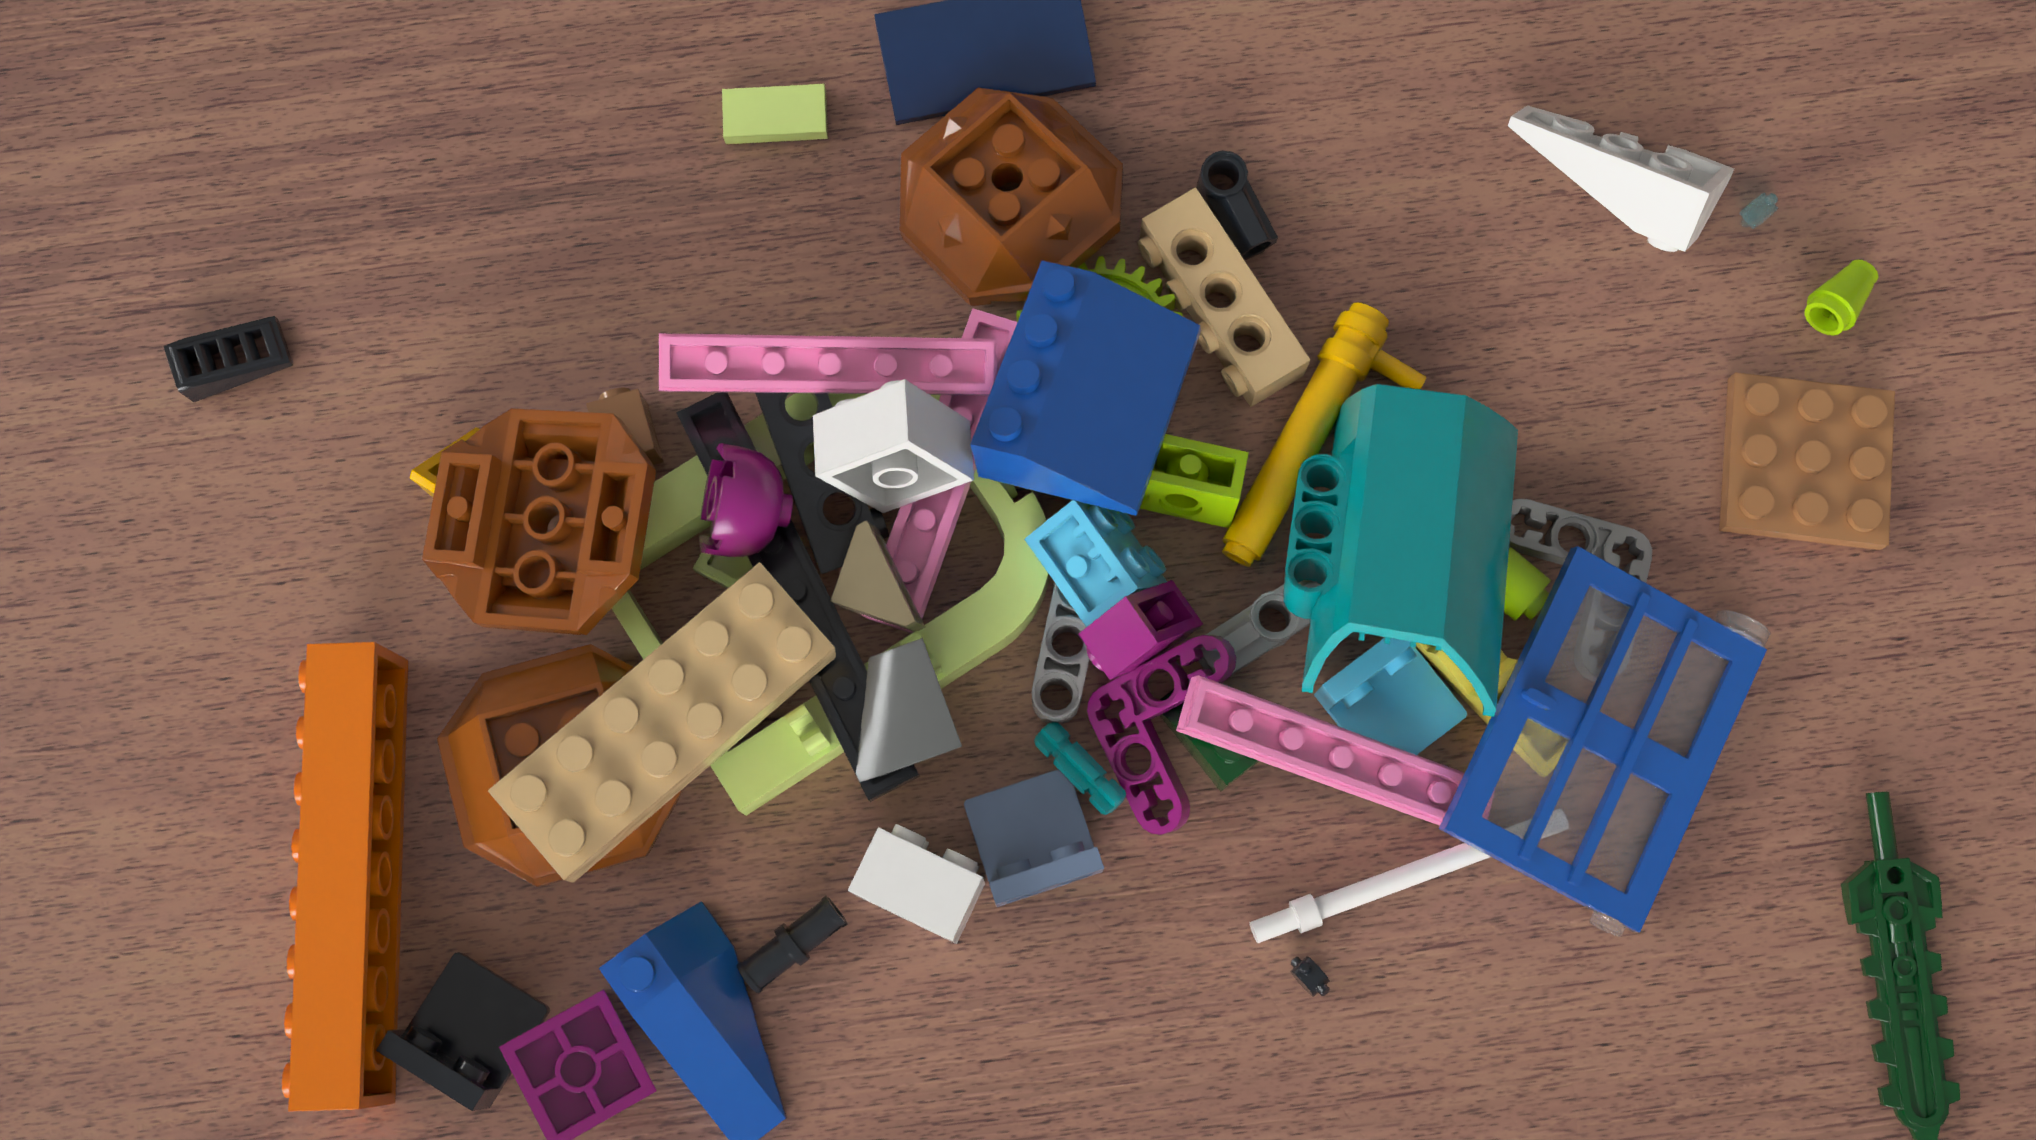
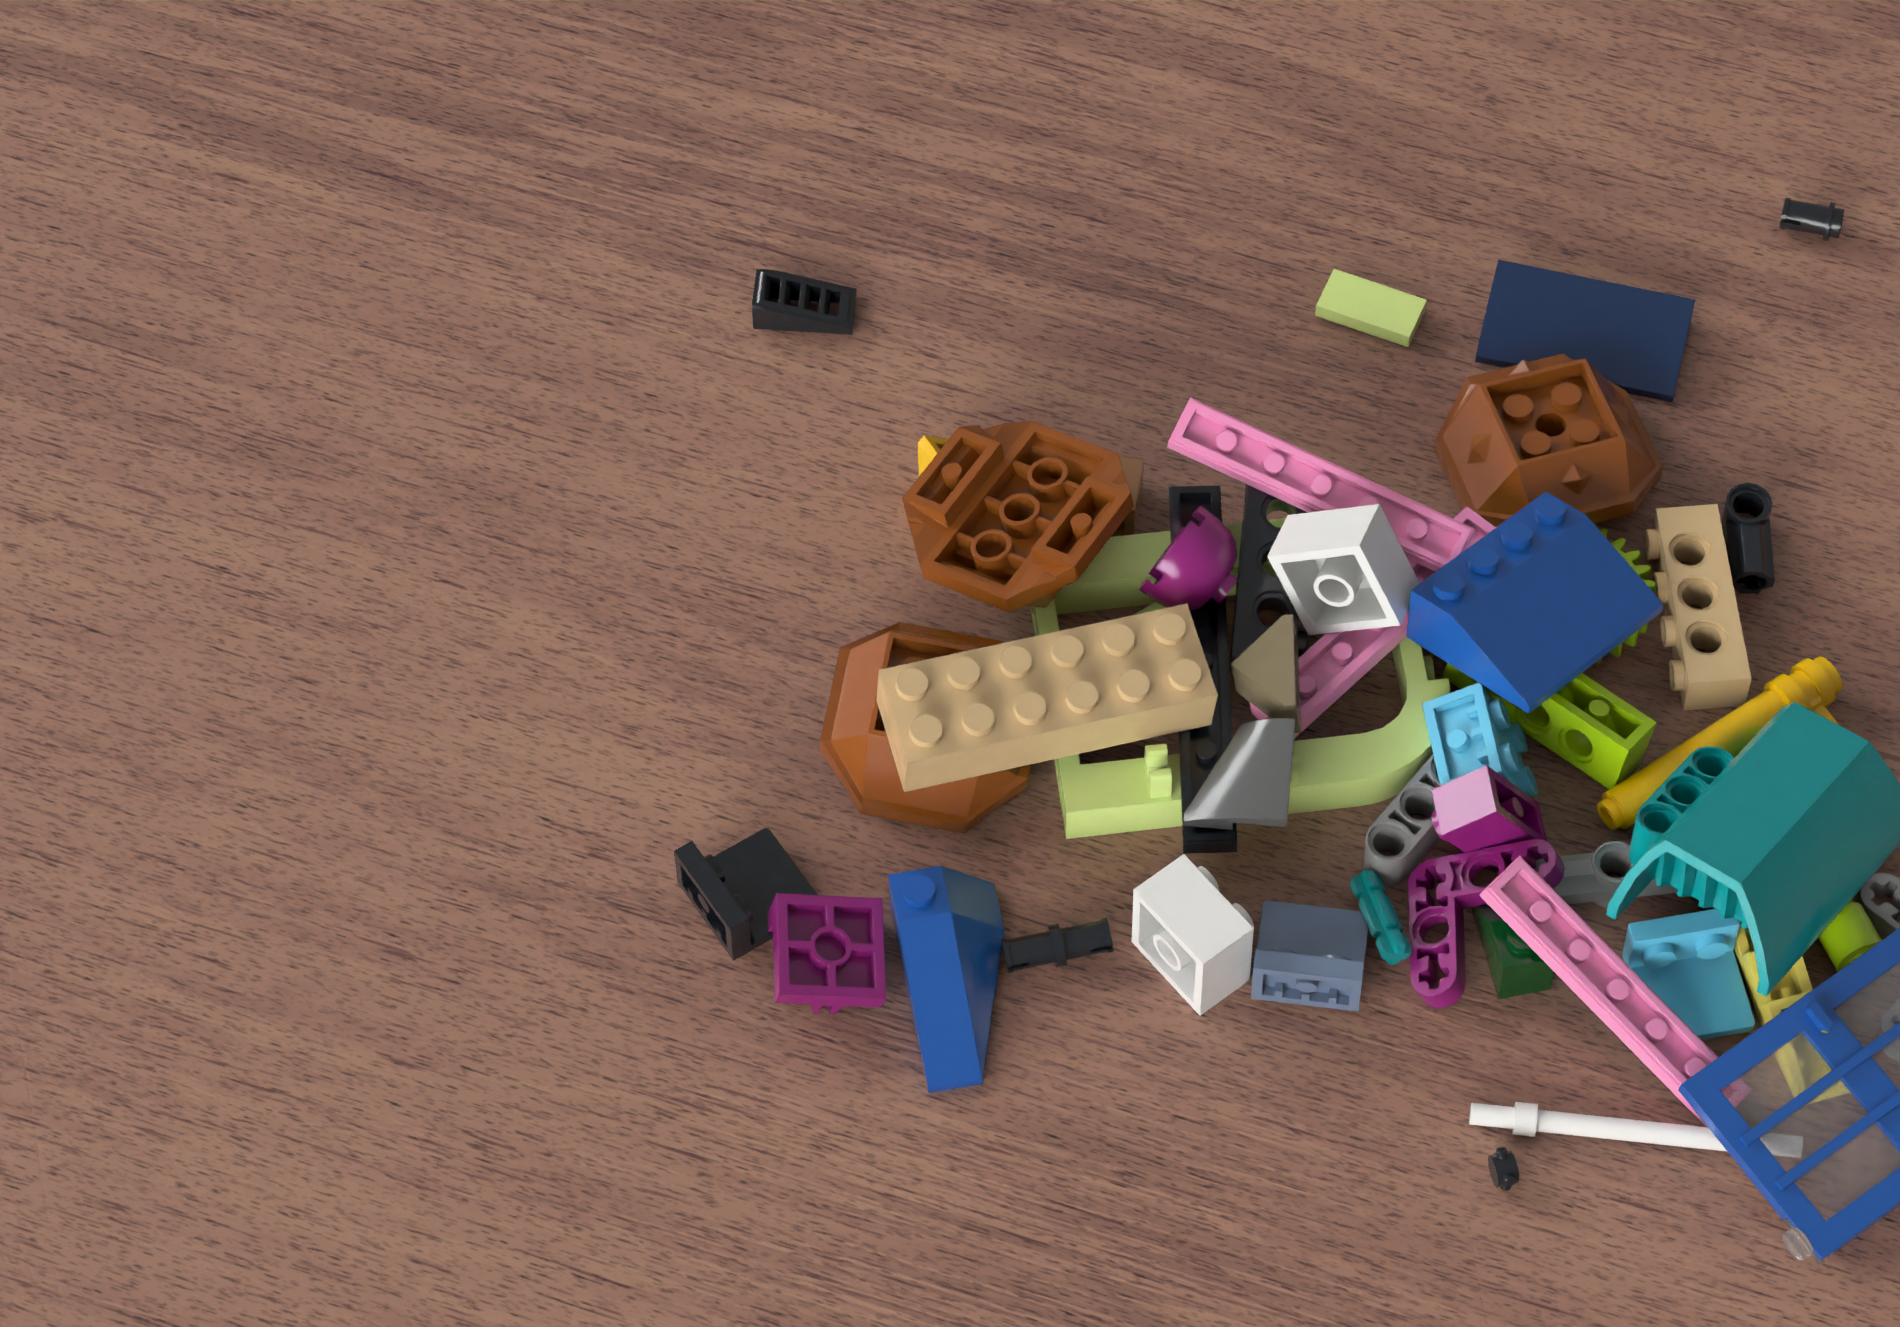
camera: 25 degrees right, 20 degrees down
(347, 877) = (711, 722): orange brick -> none

